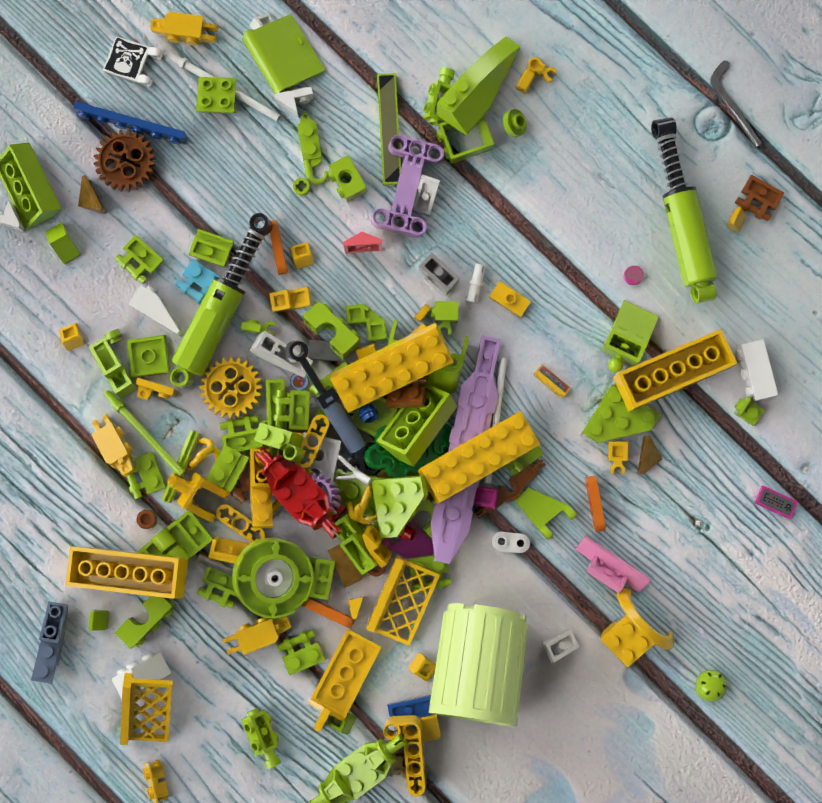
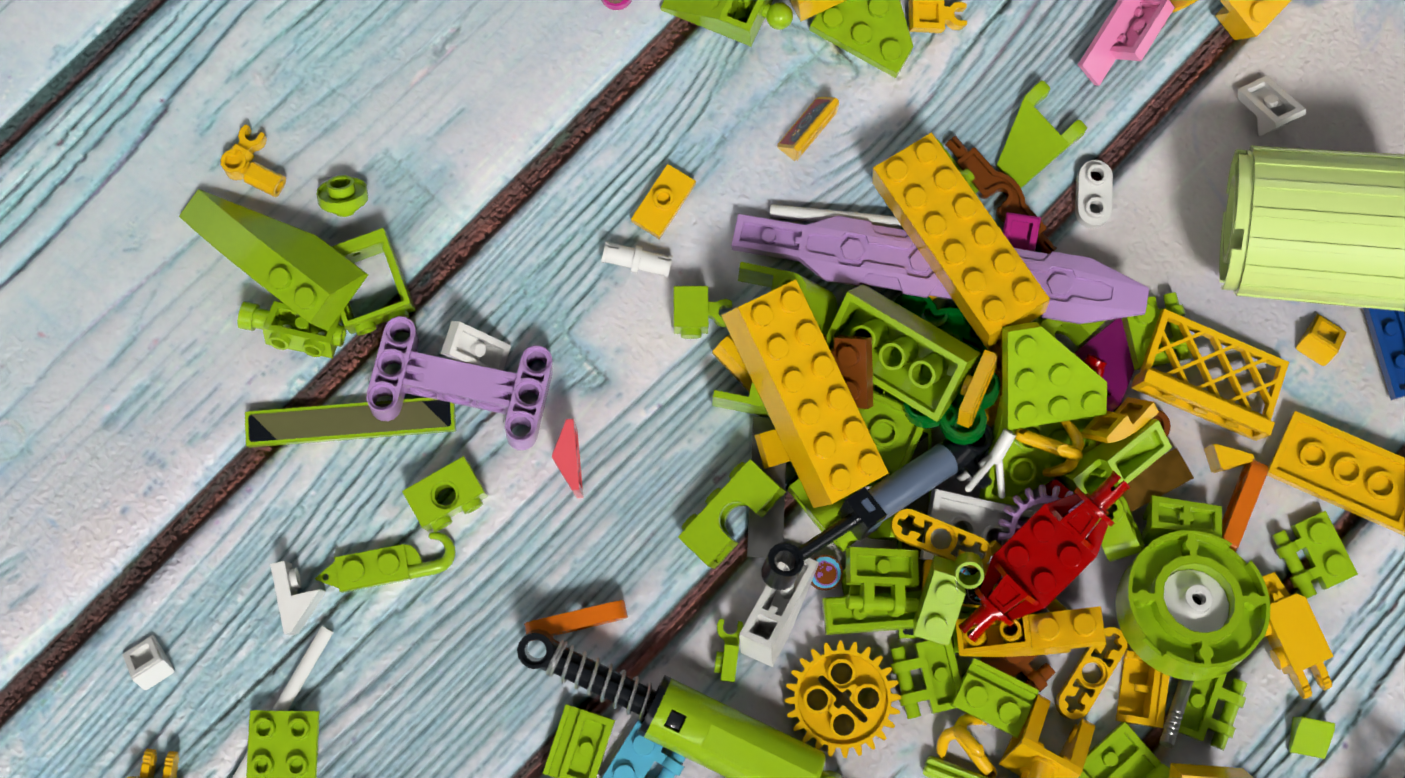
camera: 90 degrees left, 5 degrees down
(202, 642) = (1310, 737): none -> lime slope
(282, 54) = (204, 623): lime door -> none
(290, 299) = (672, 594): yellow slope -> none
(297, 183) = (452, 589): lime bush -> none
(302, 255) = (588, 575): yellow slope -> none
(318, 542) = (1124, 536): none -> lime piece
(364, 315) = (714, 438): lime tile -> none
(368, 413) = (886, 439): blue plate -> none
(394, 462) = (975, 388): none -> yellow plate
(422, 312) = (692, 352): yellow tile -> none
(439, 273) = (622, 321): light grey brick -> none
(595, 503) = (1020, 50): orange beam -> none

